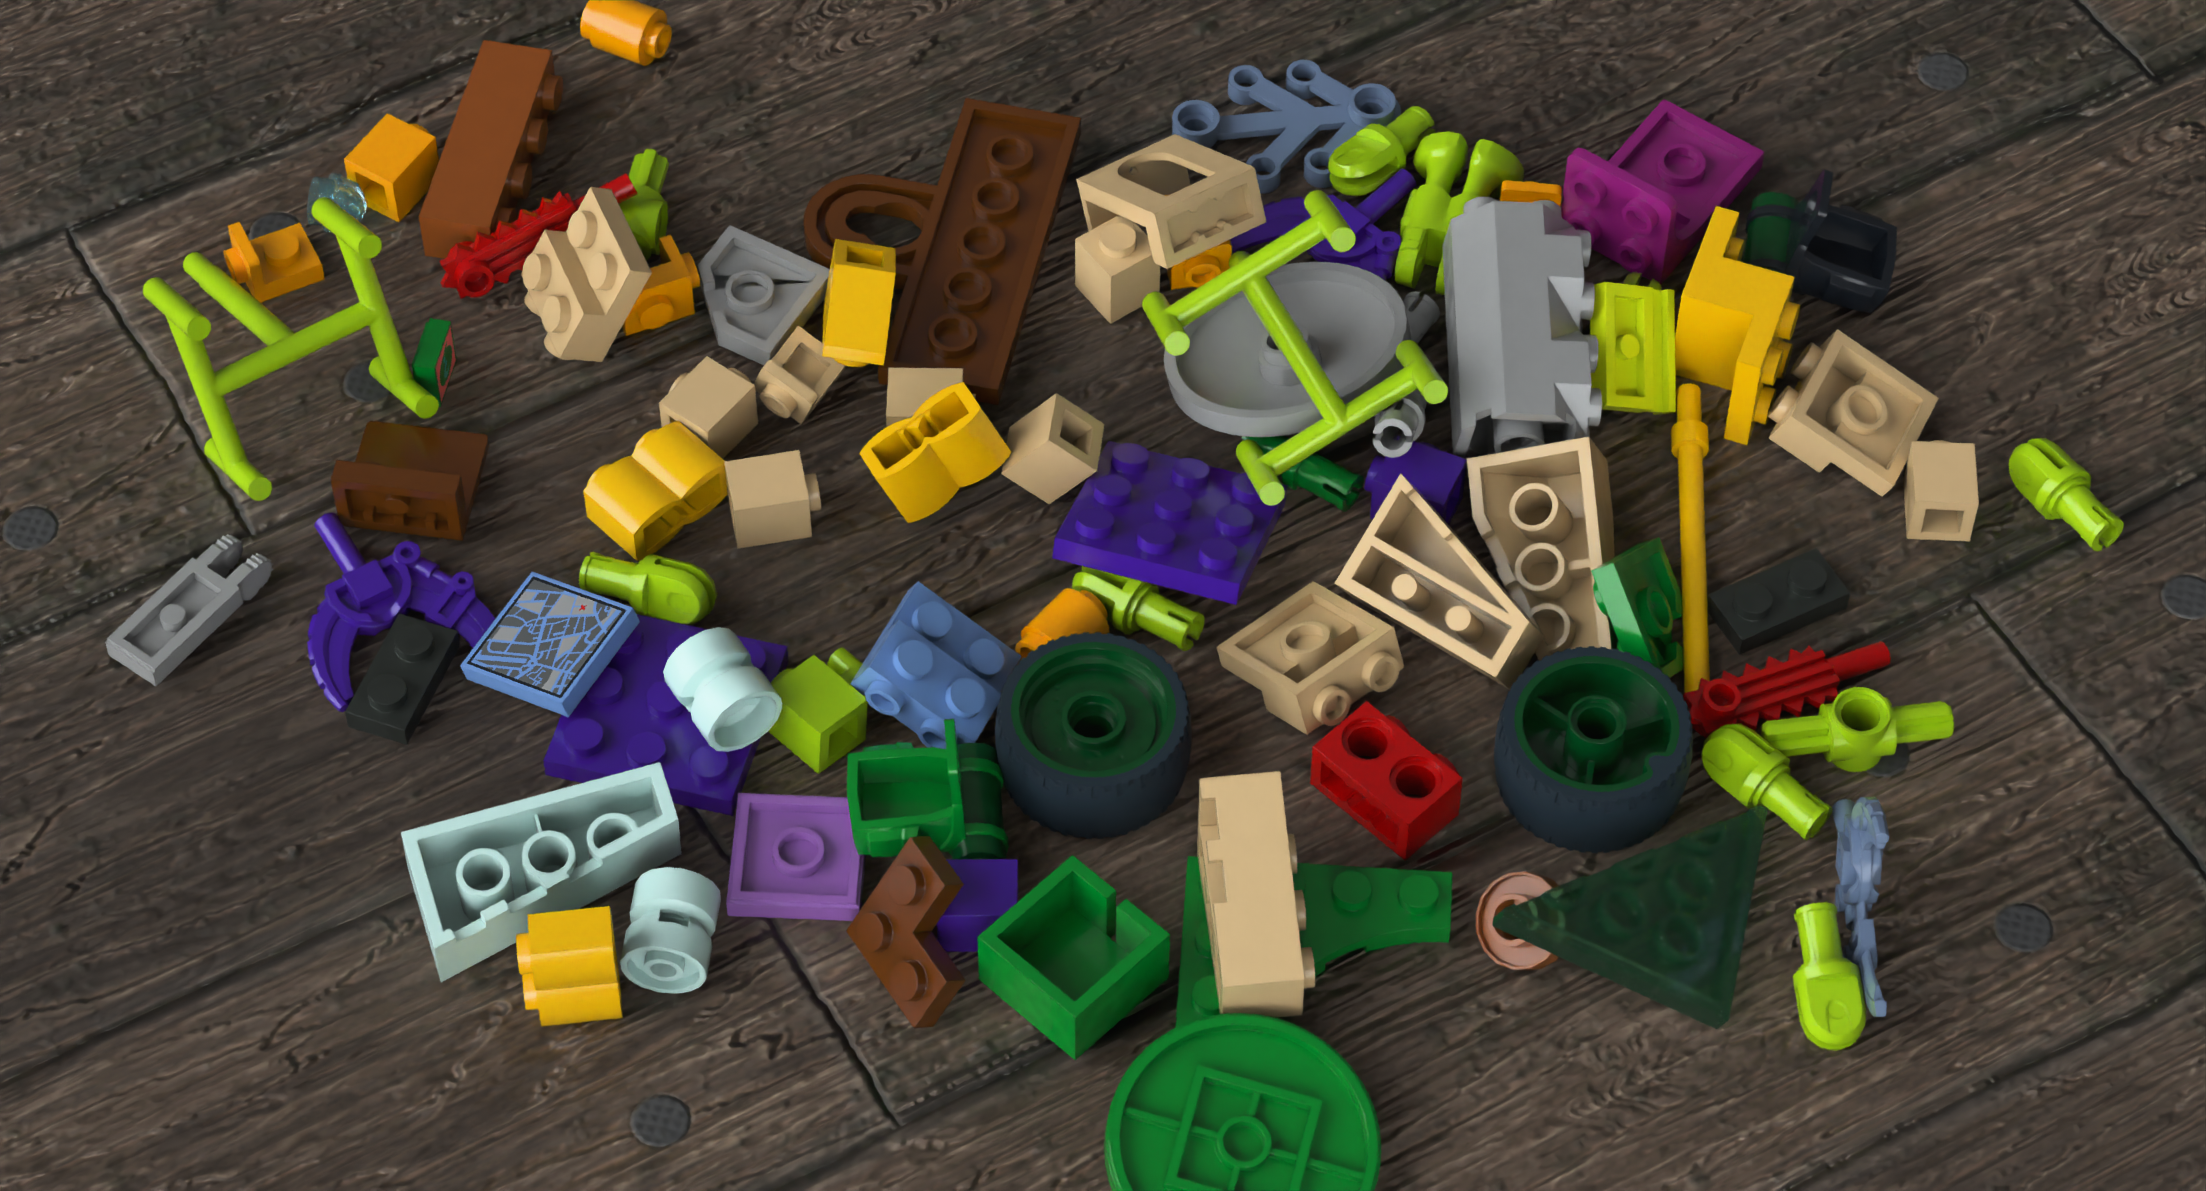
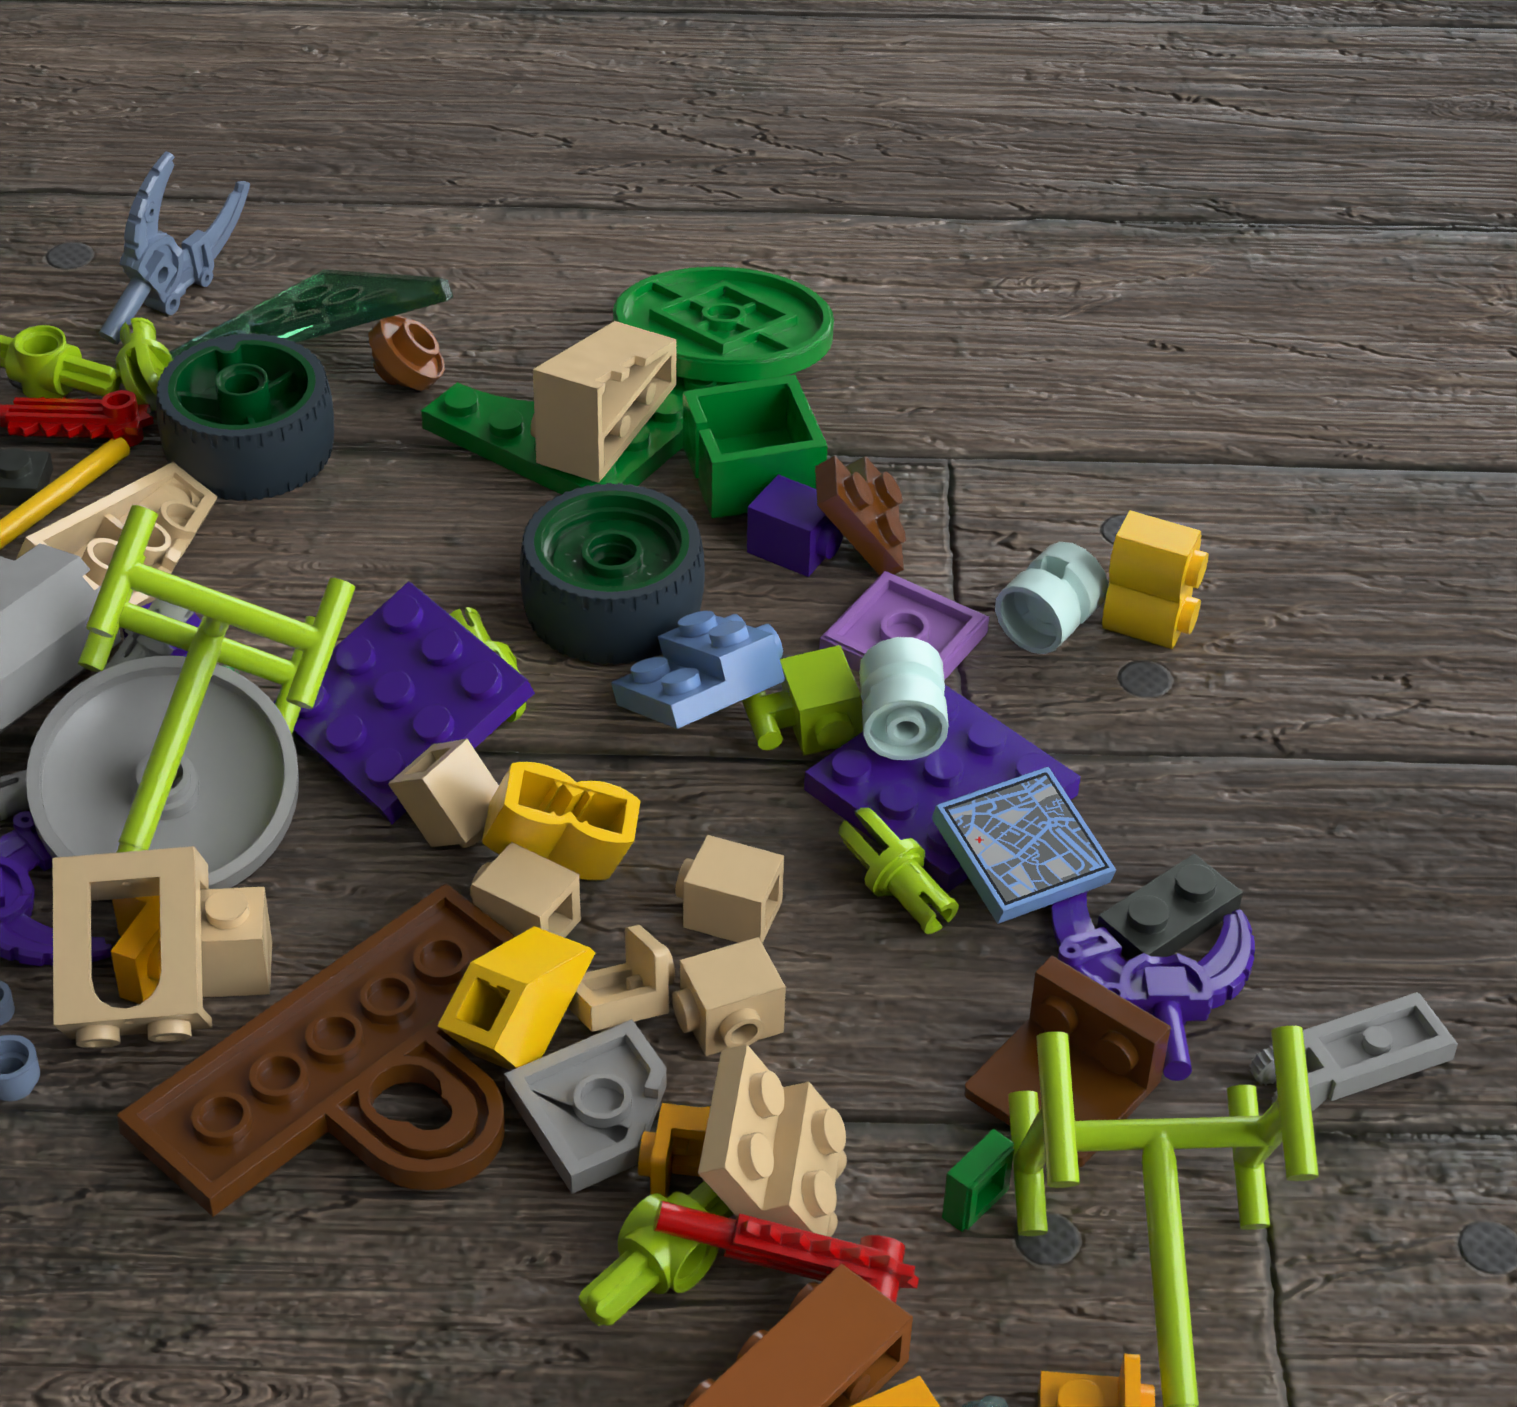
camera: 150 degrees left, 10 degrees down
(535, 856) = (1132, 680): light aqua wedge -> none
(656, 489) = (835, 946): yellow brick -> none
(927, 792) = (786, 577): green piece -> none
(1065, 615) = (567, 673): light orange brick -> none
(1314, 657) = (381, 553): tan plate -> none
(1377, 787) = (410, 474): red brick -> none
(1435, 587) = (253, 537): tan wedge -> none
(1642, 602) = (118, 464): green plate -> none
(1827, 984) = (240, 255): lime arm -> none

